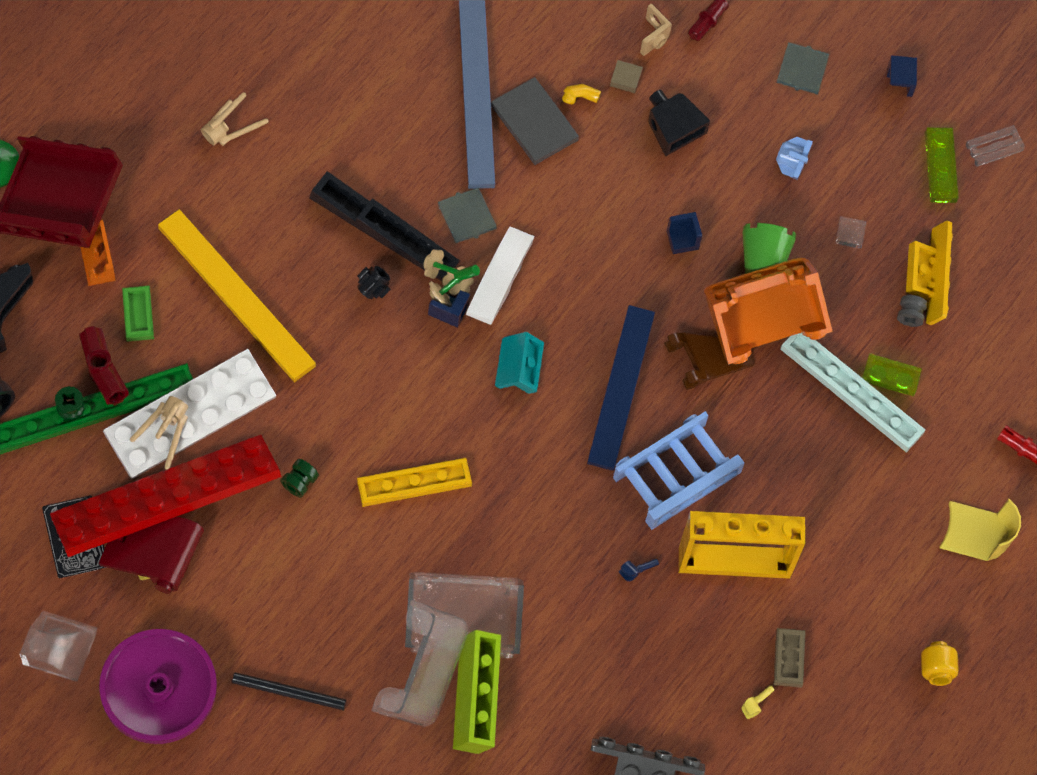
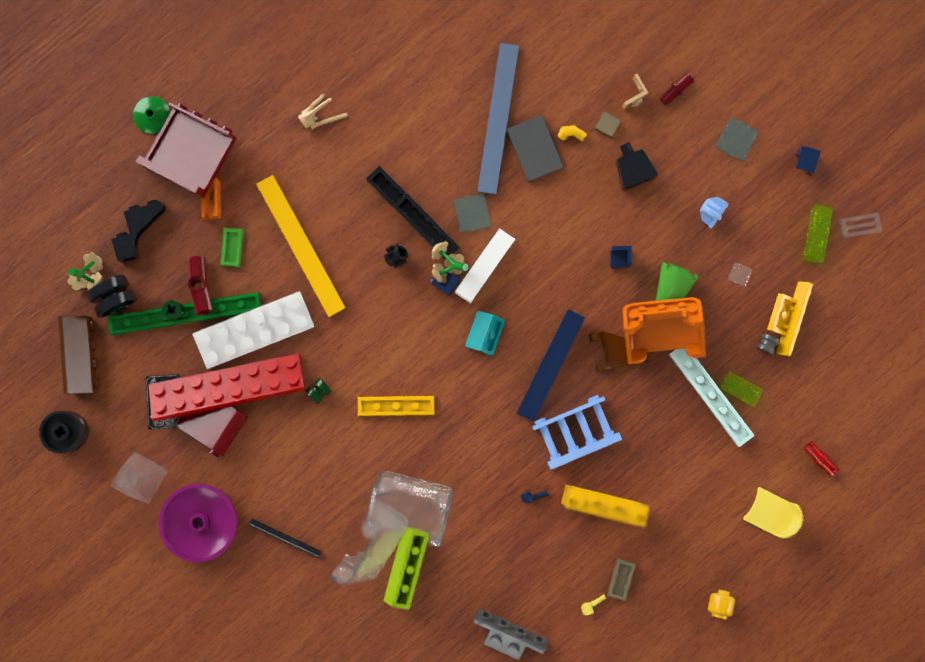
camera: 20 degrees right, 20 degrees up
(172, 412) = (239, 332): tan plant -> none

